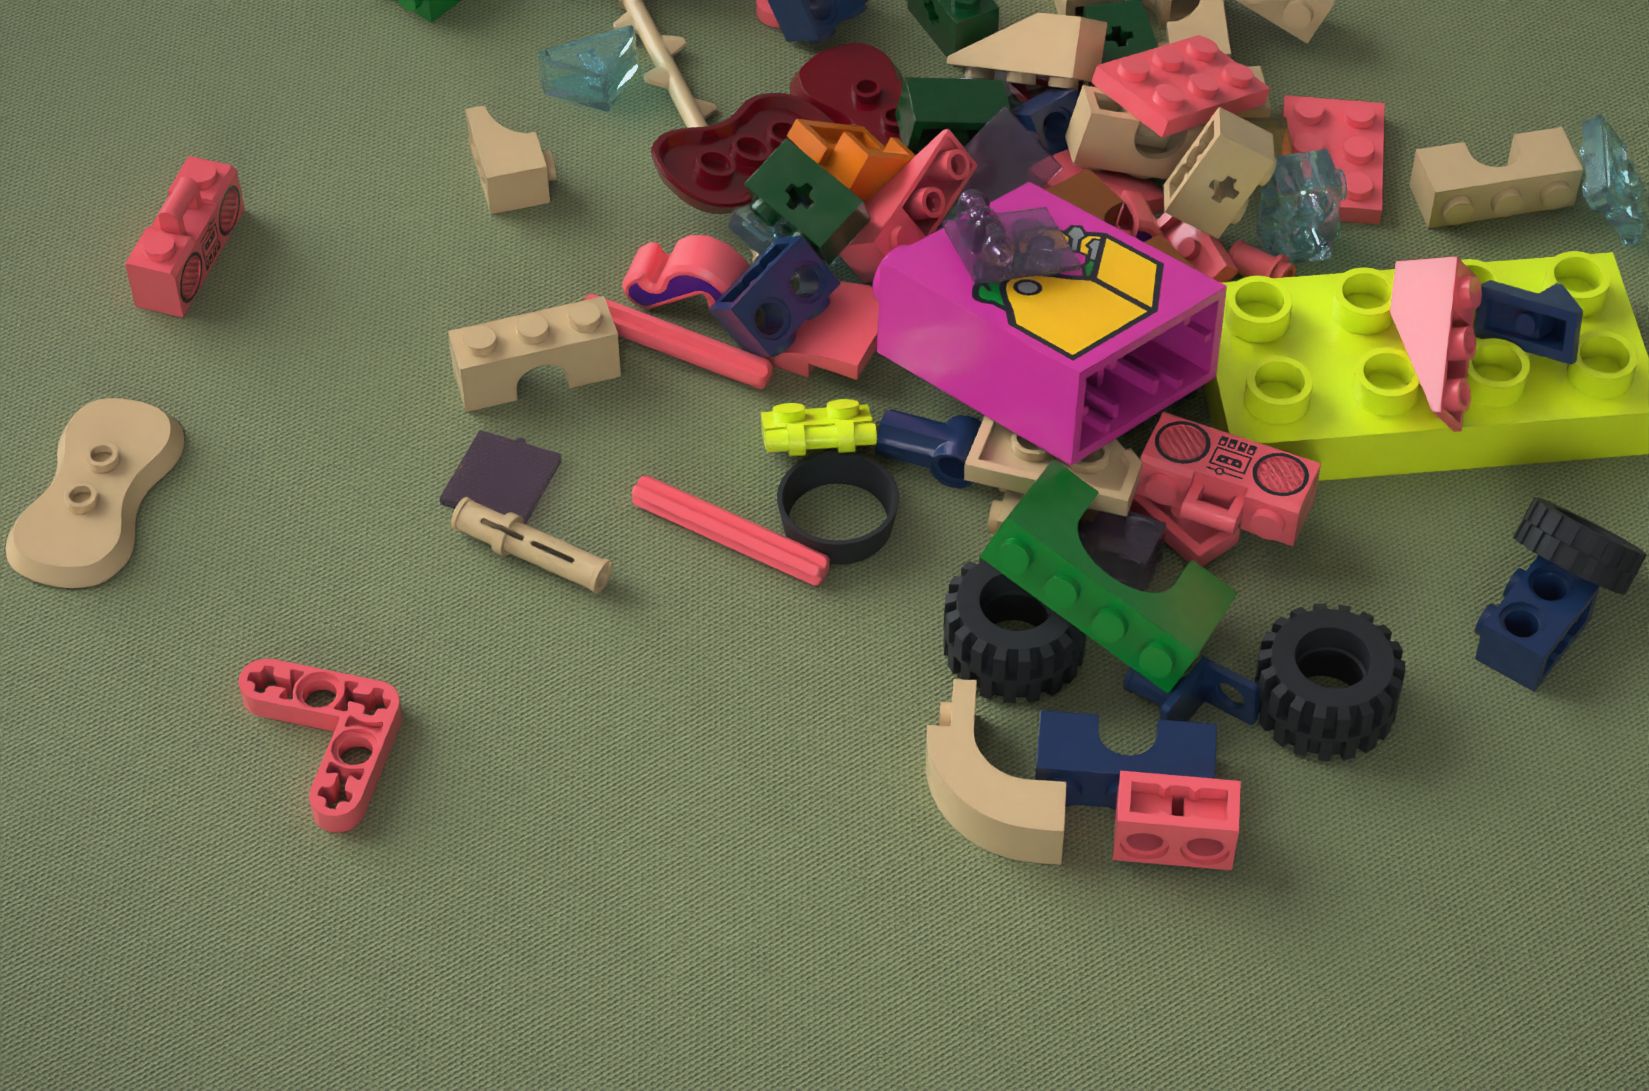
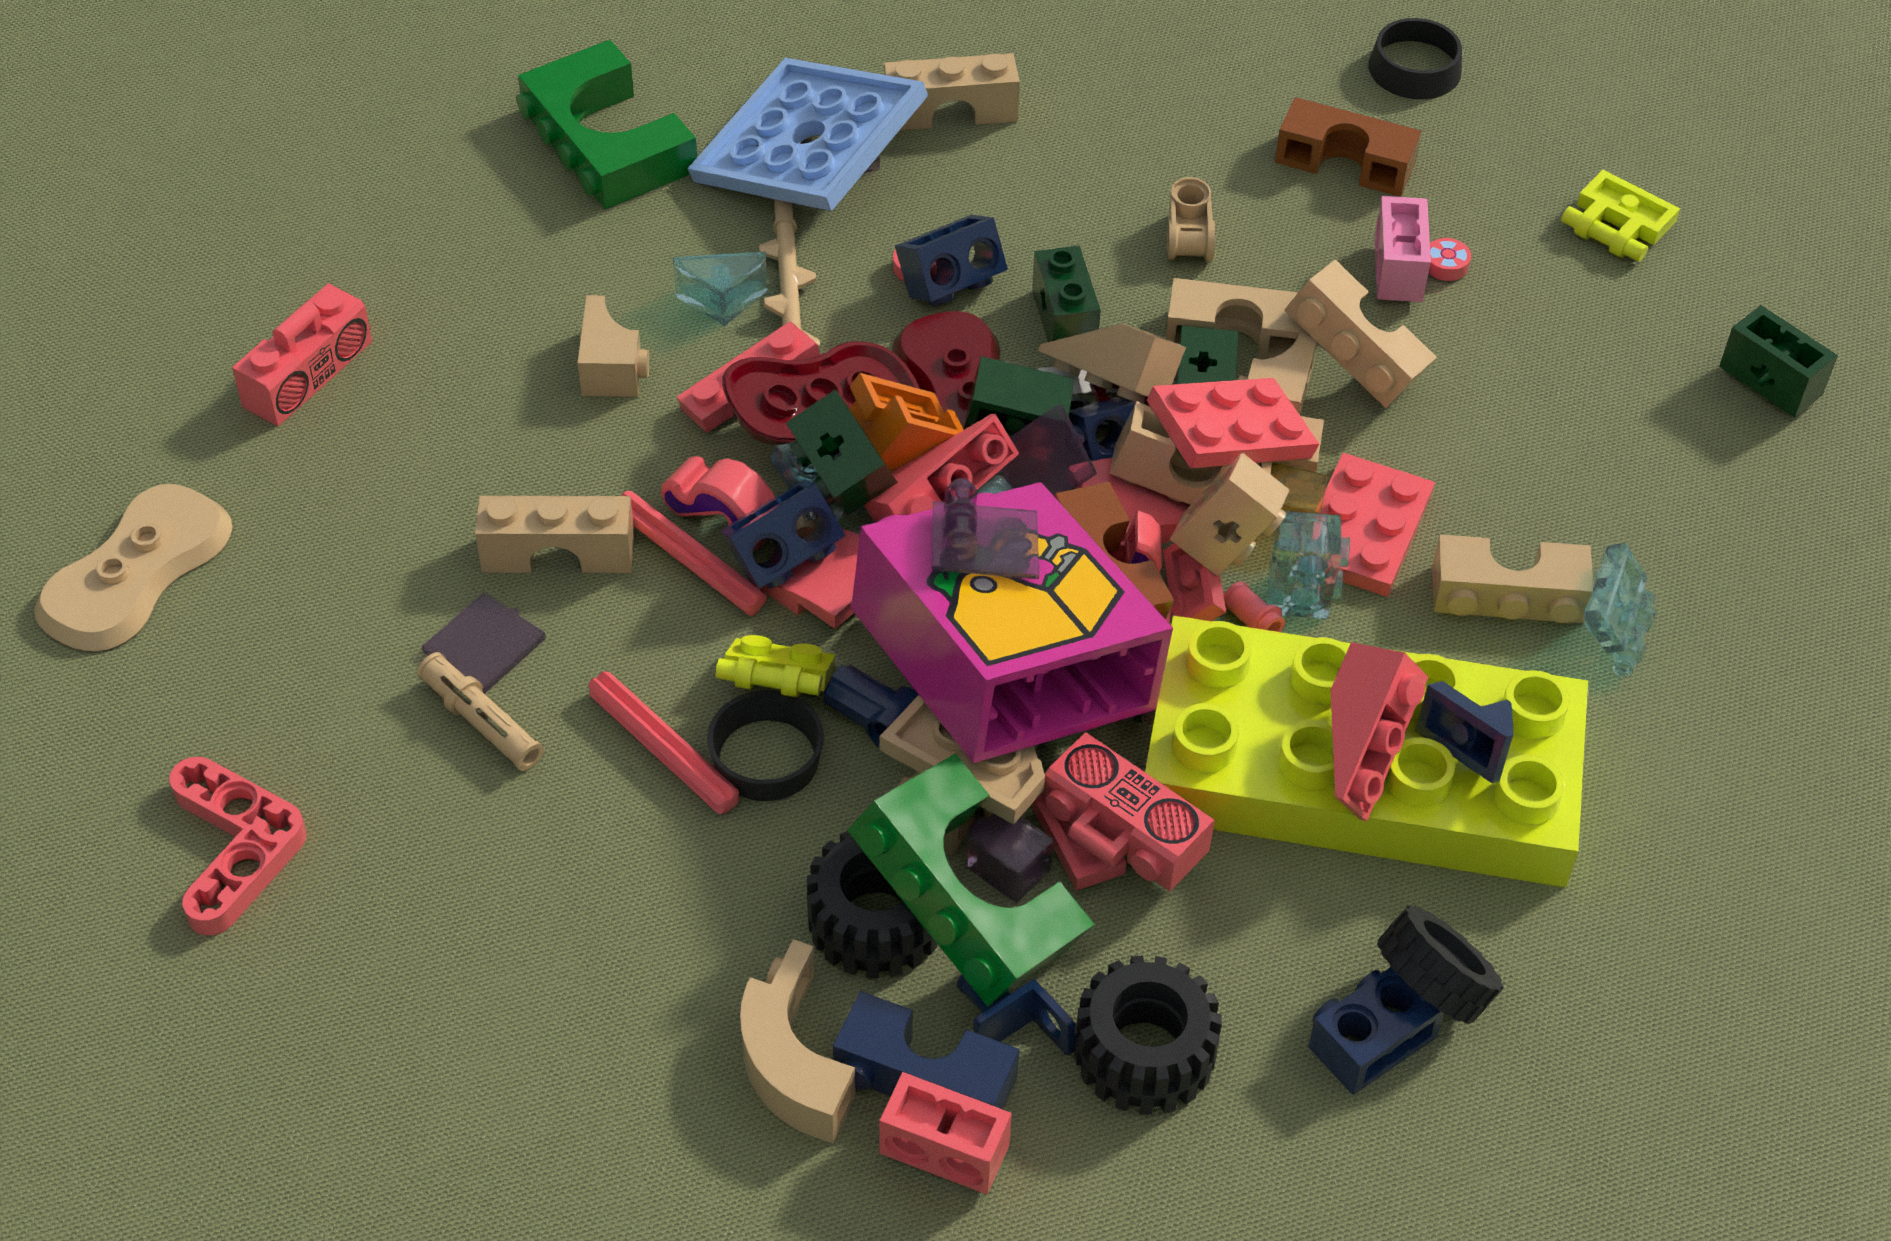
camera: 15 degrees right, 0 degrees up
(635, 181) = (706, 399): none -> coral plate

